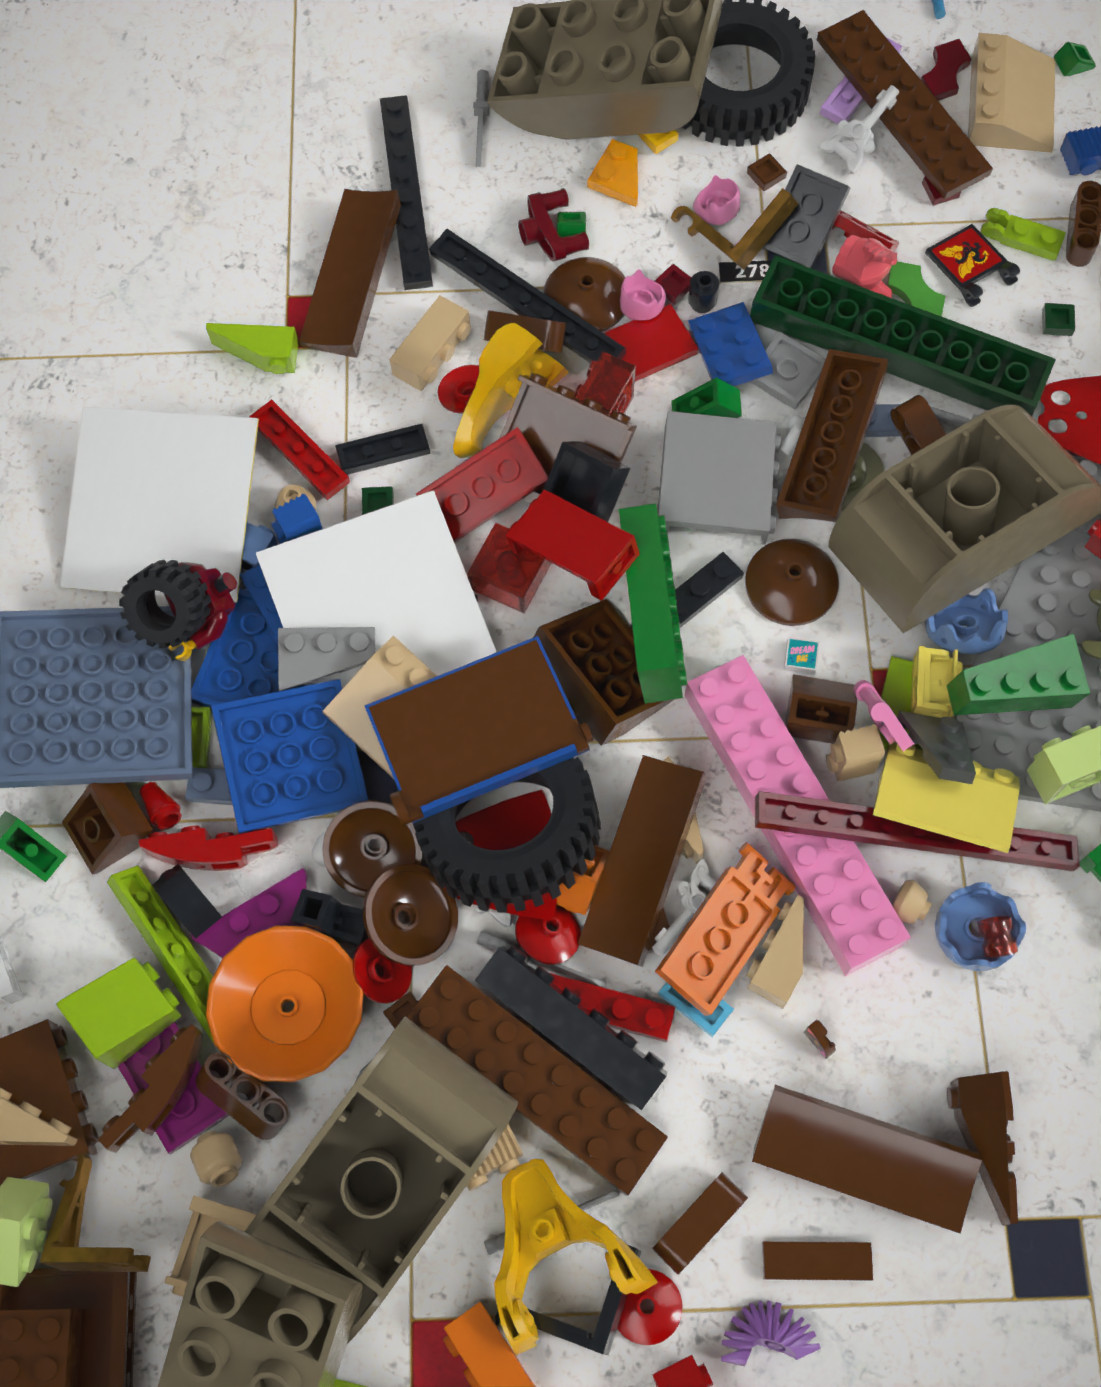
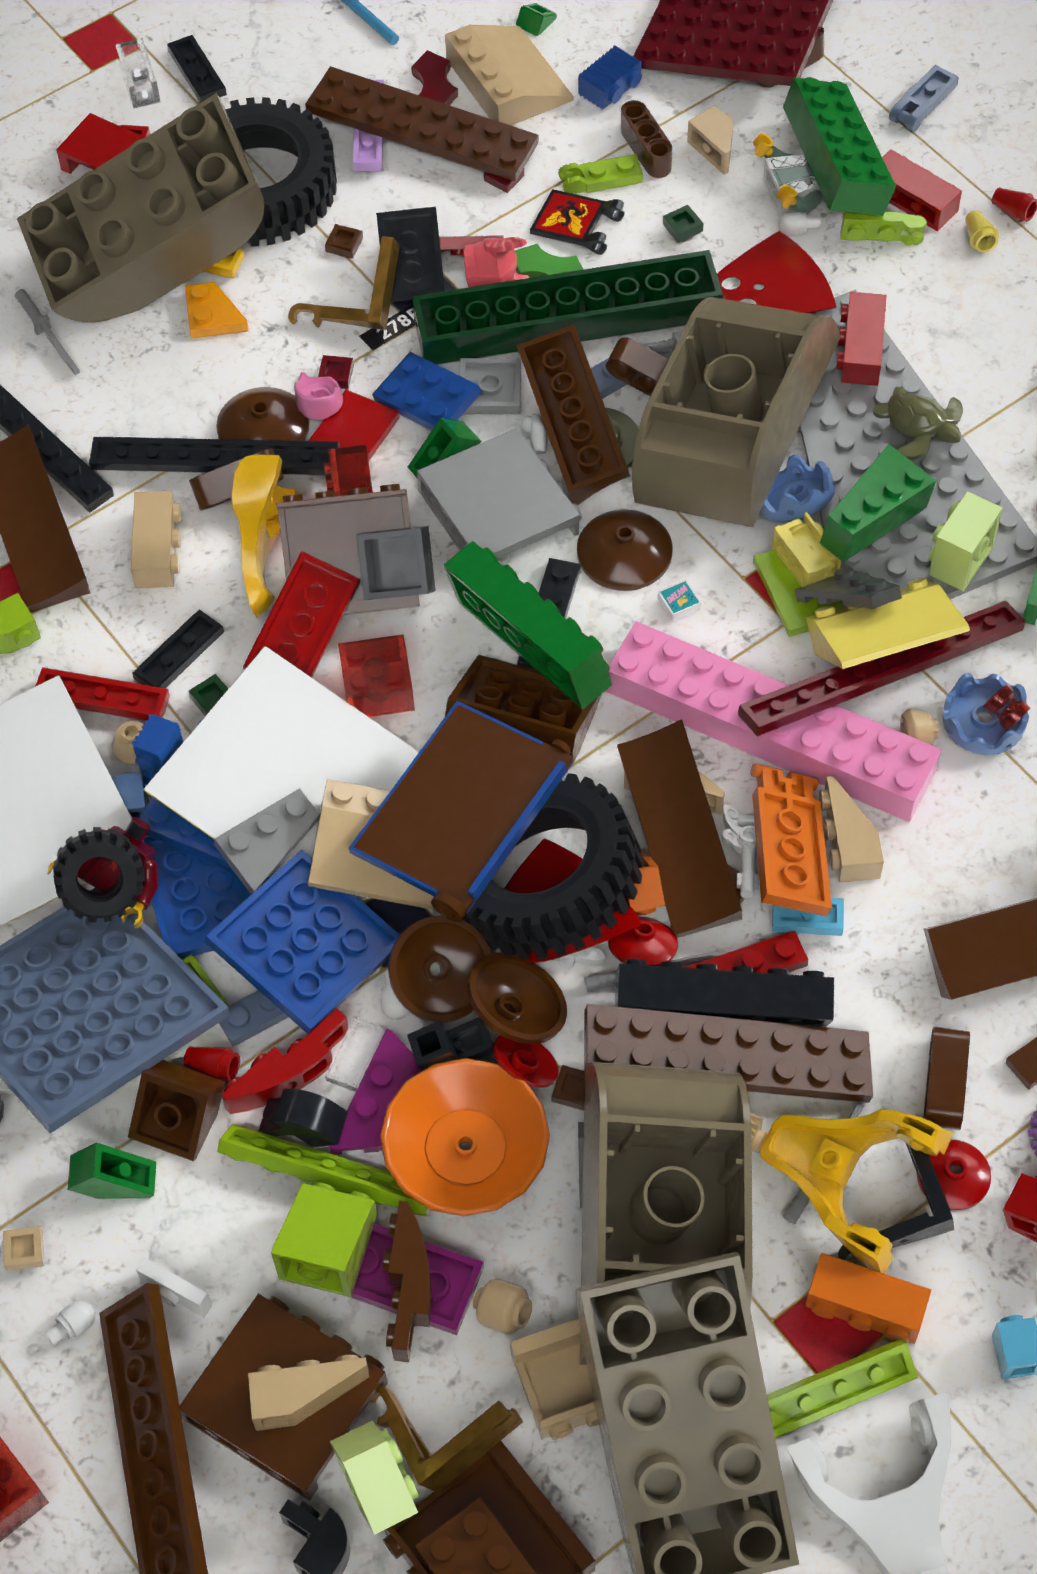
camera: 35 degrees left, 10 degrees down
(247, 1113) = (487, 1237): reddish brown beam -> none
(458, 387) = (216, 557): red dish -> none
(540, 229) = (179, 391): dark red connector -> none
(571, 223) = (204, 377): green slope -> none
(574, 542) = (428, 606): red panel -> none
(703, 291) = (369, 362): black brick -> none
(718, 201) = (322, 284): bright pink hair -> none
(816, 1034) = (927, 878): reddish brown tile -> none
(820, 708) = (733, 628): reddish brown slope -> none
(856, 753) = (787, 641): tan brick -> none
(859, 132) = (402, 165): white piece -> none
(882, 715) = (789, 594): bright pink plate -> none

